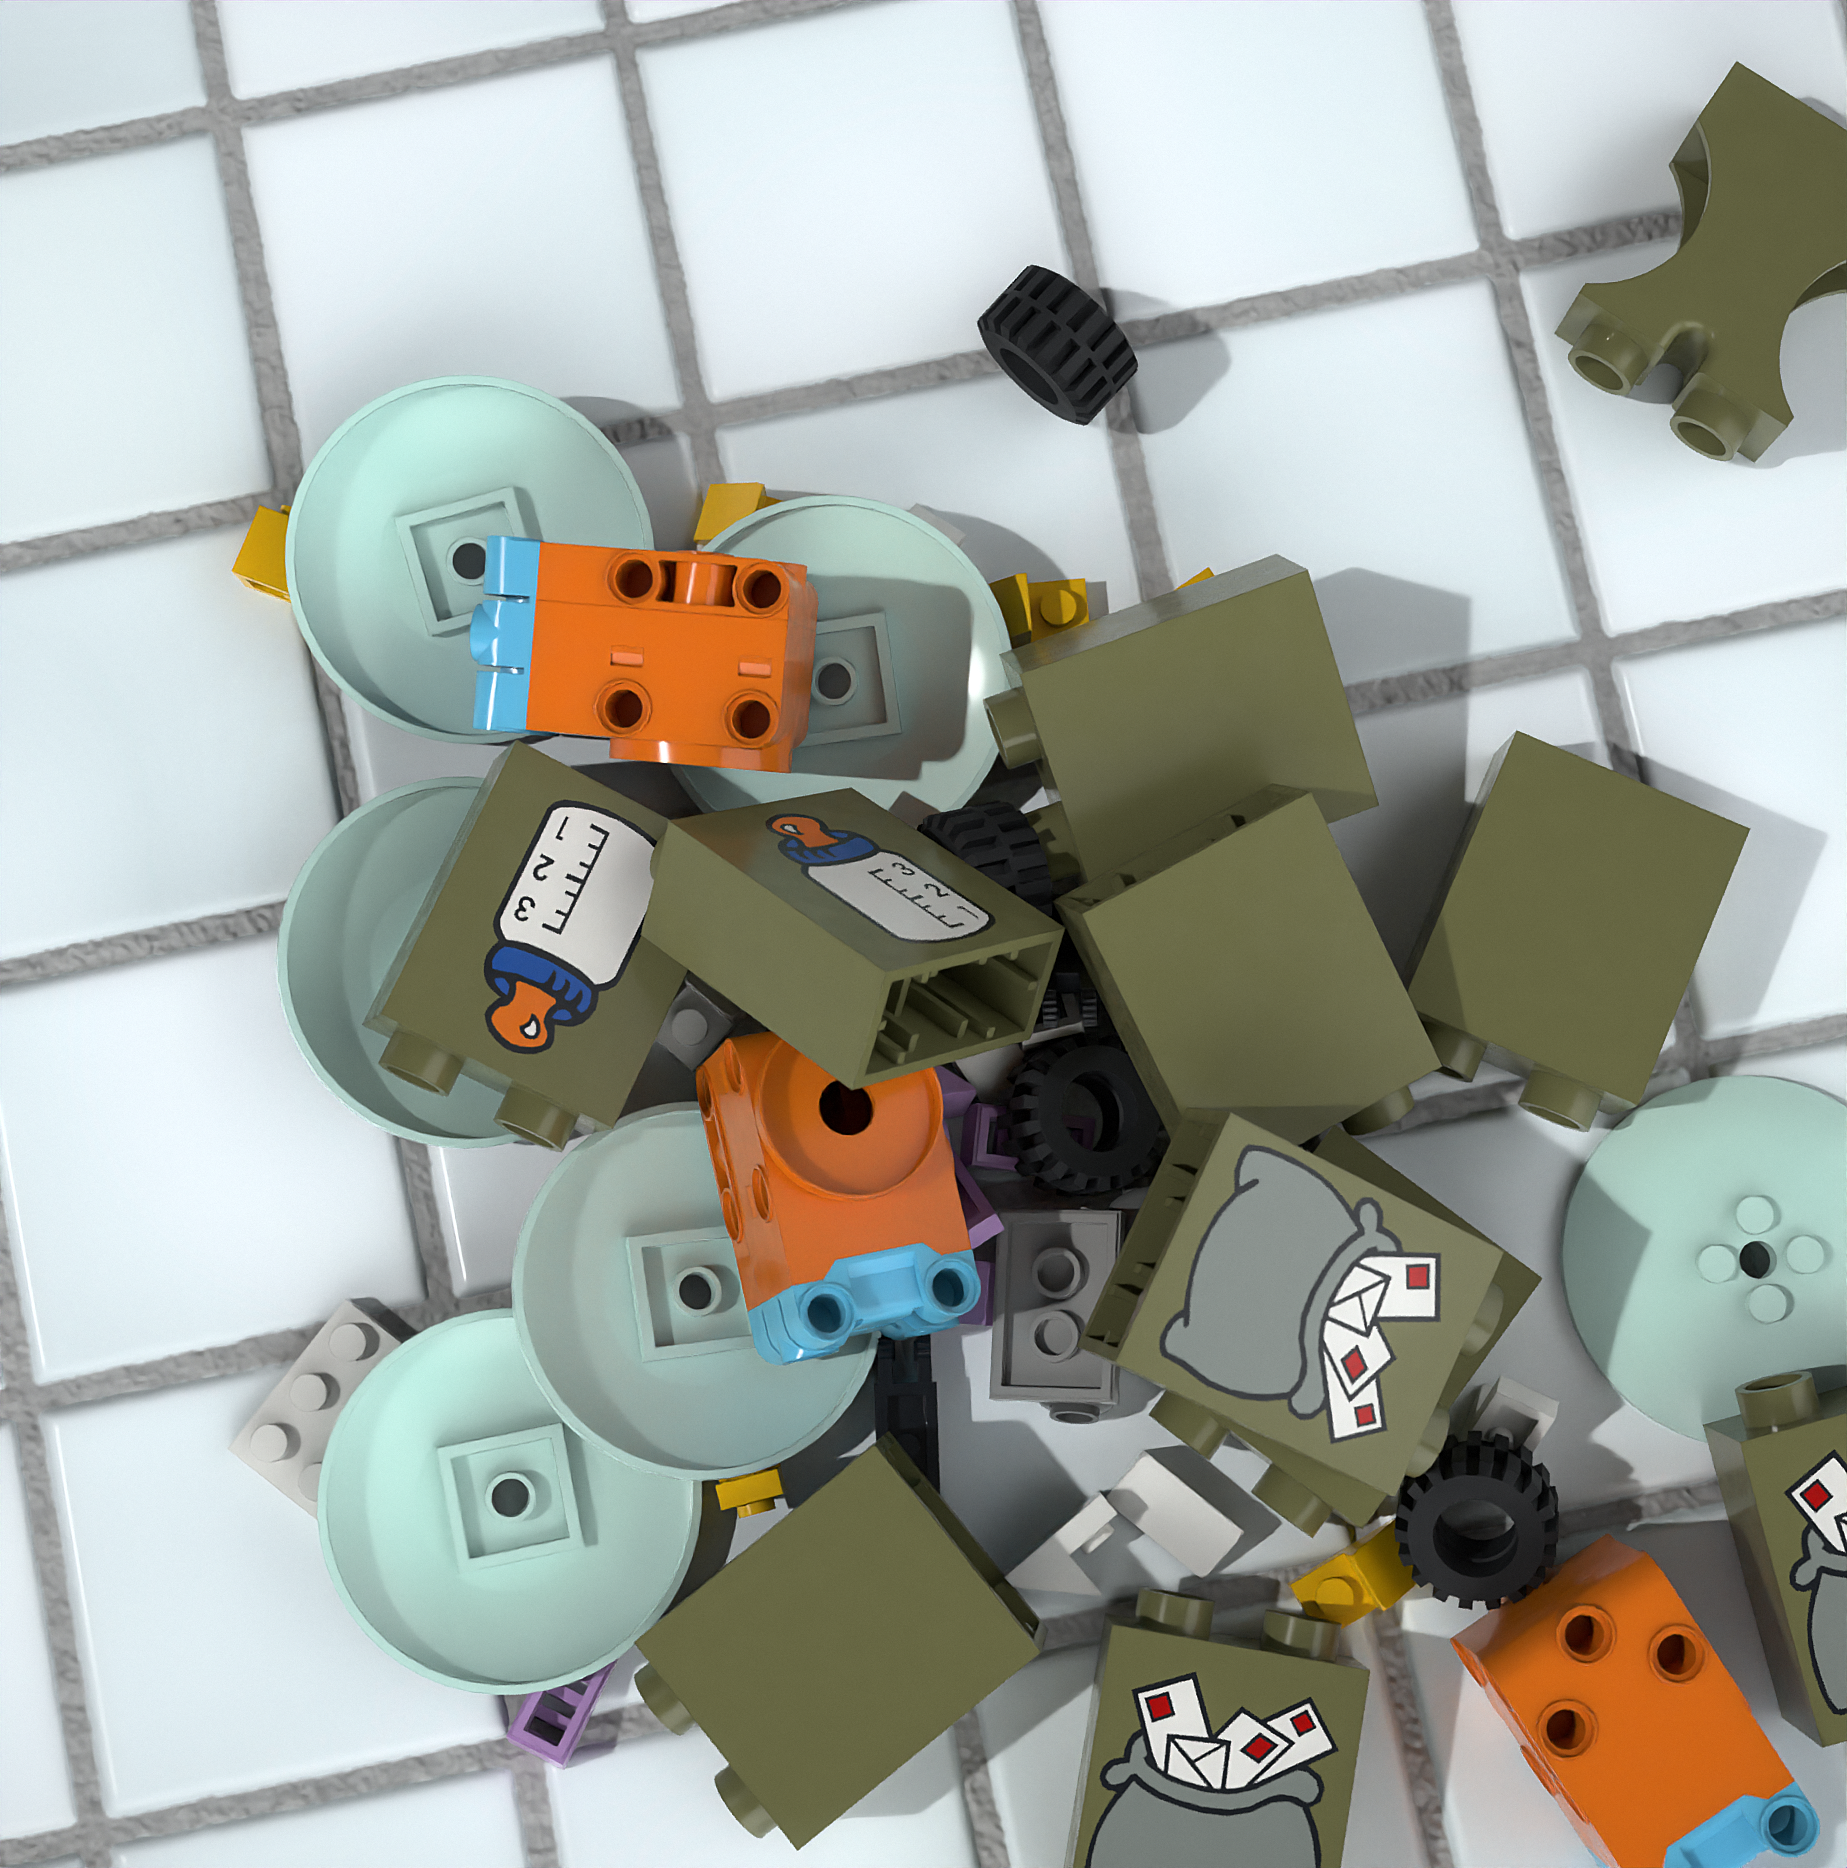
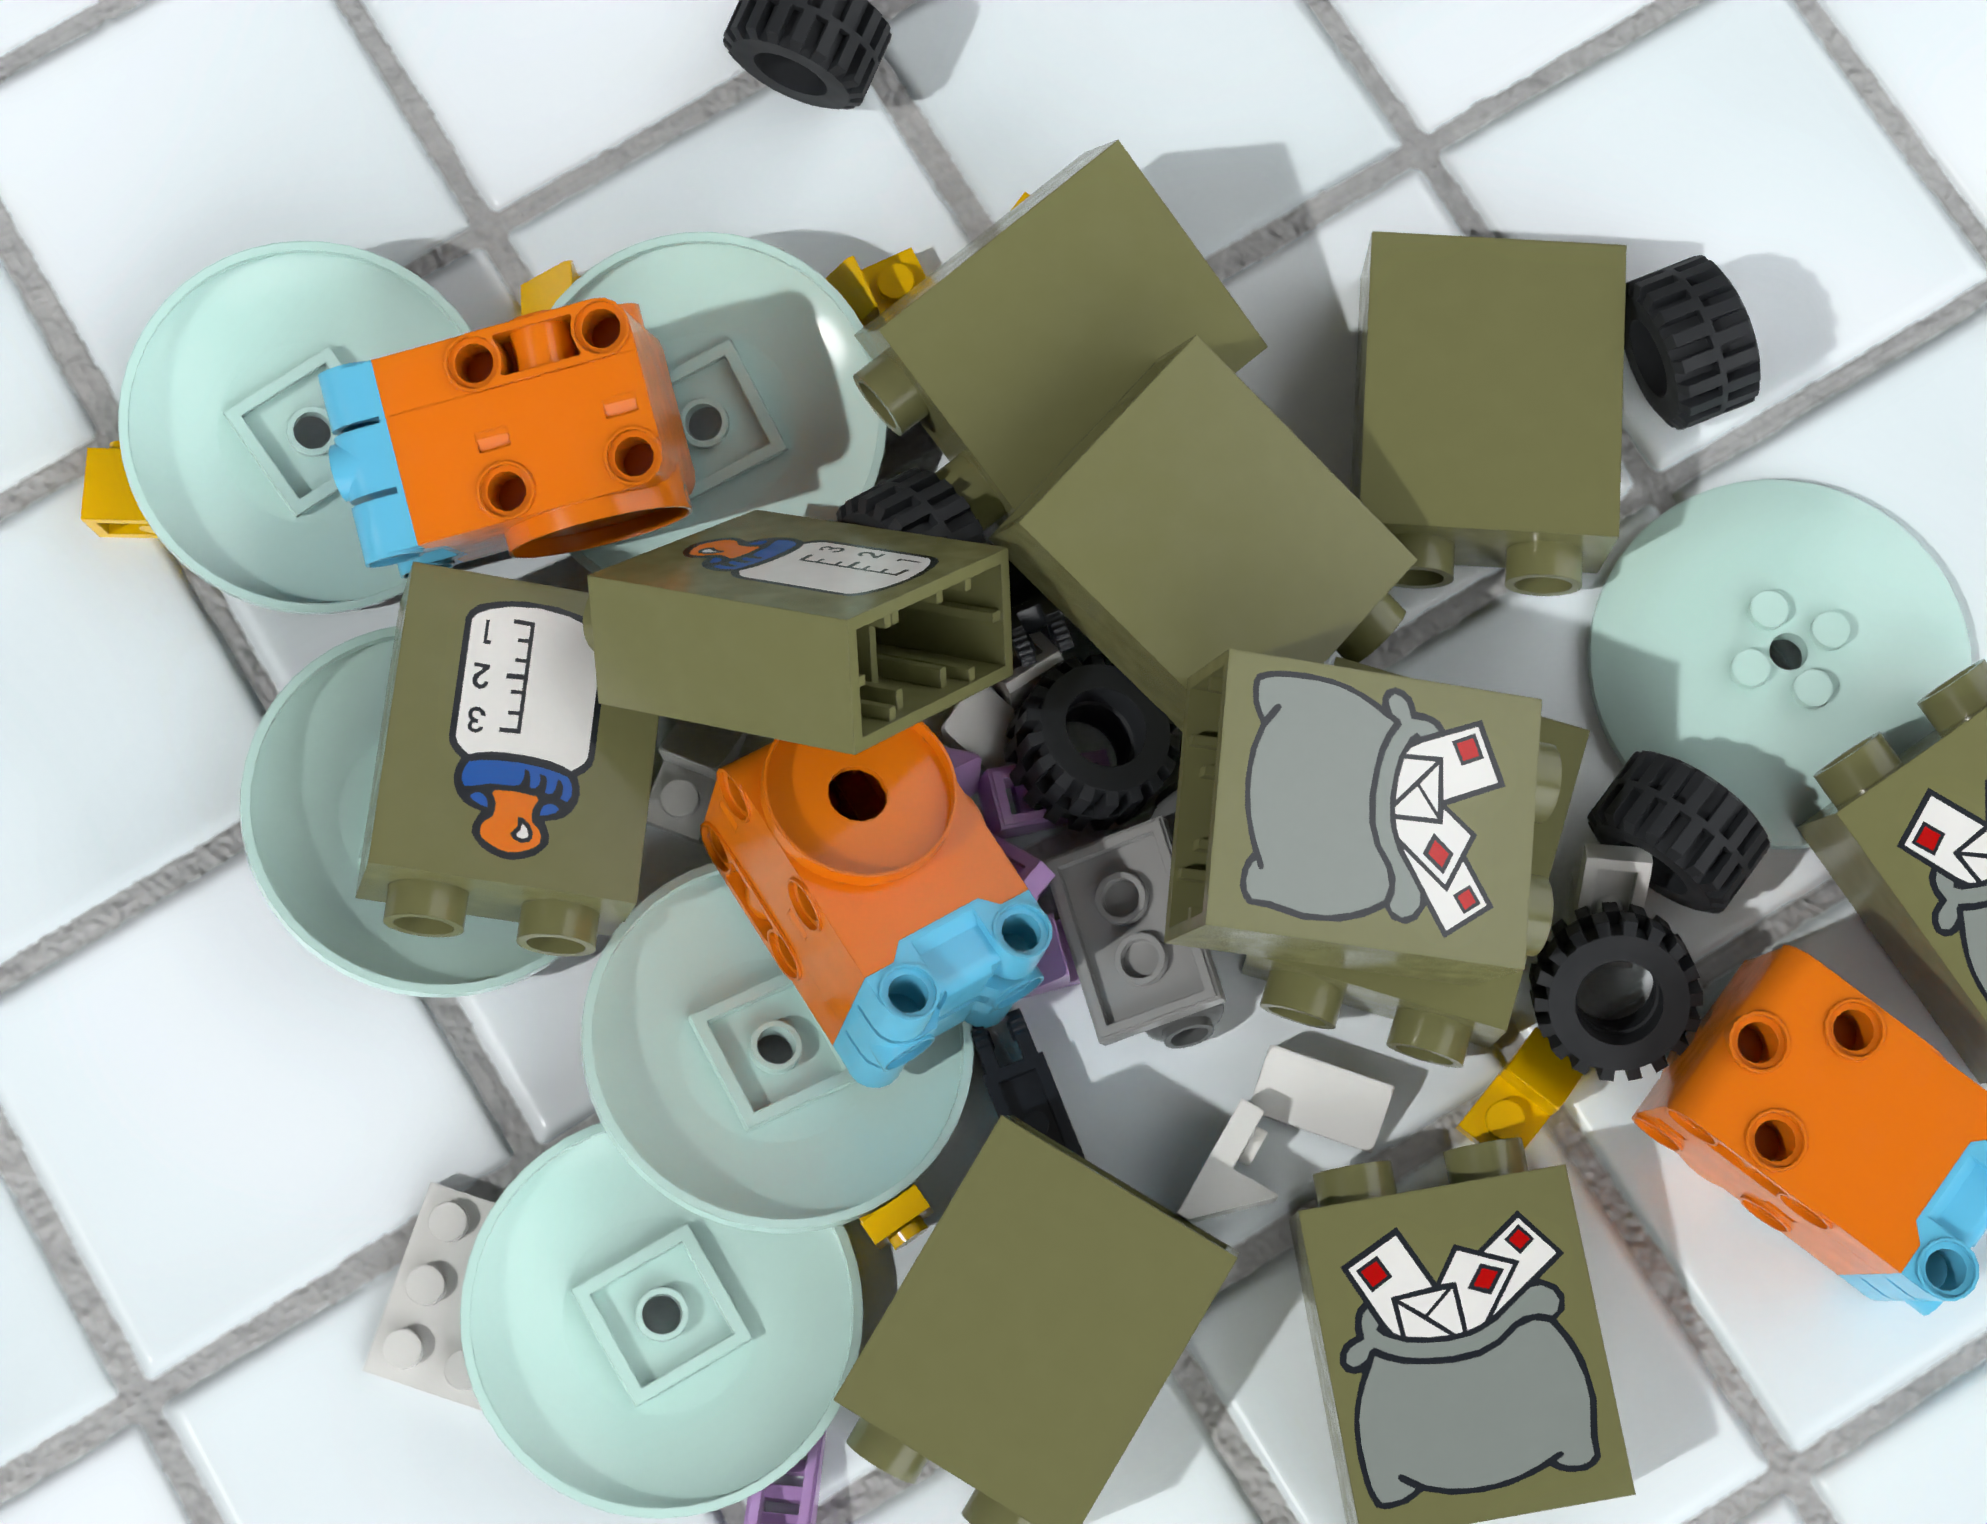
camera: 15 degrees left, 5 degrees down
(1600, 1395) = (1691, 825): none -> black tyre
(1777, 937) = (1690, 342): none -> black tyre

